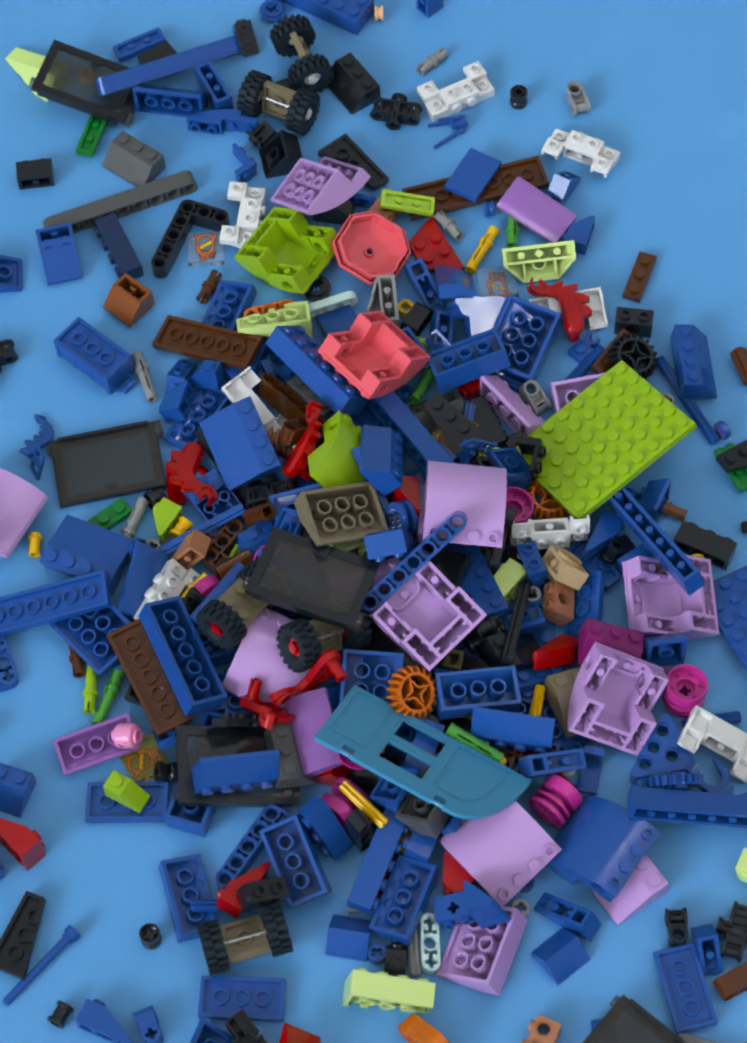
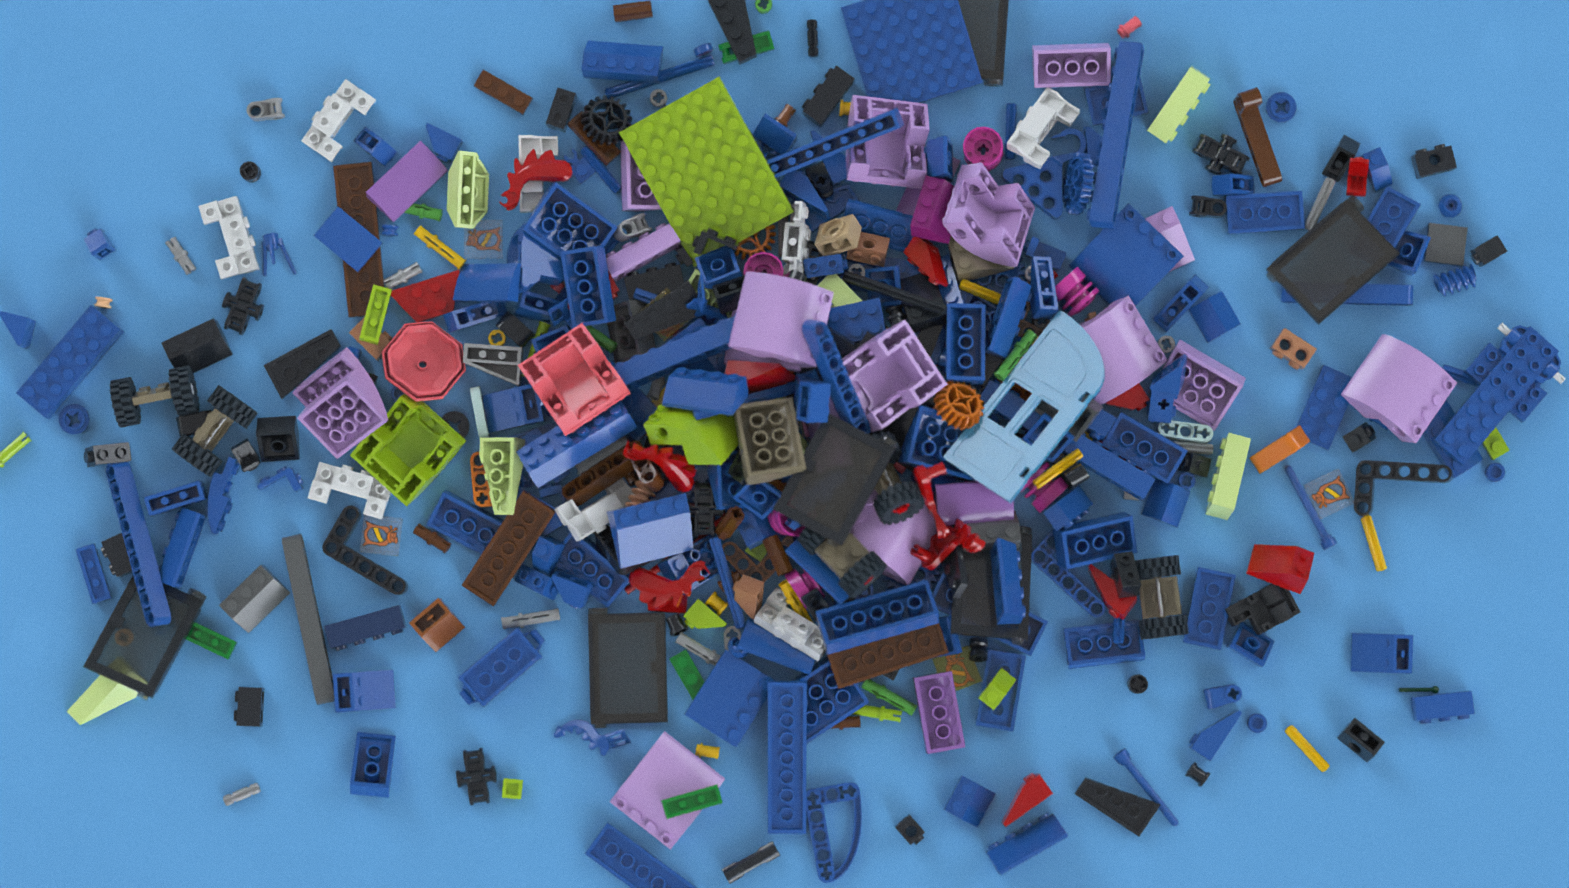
camera: 85 degrees left, 25 degrees up
(127, 735) = (942, 681): bright pink head -> none
(401, 514) = (778, 383): blue head -> none

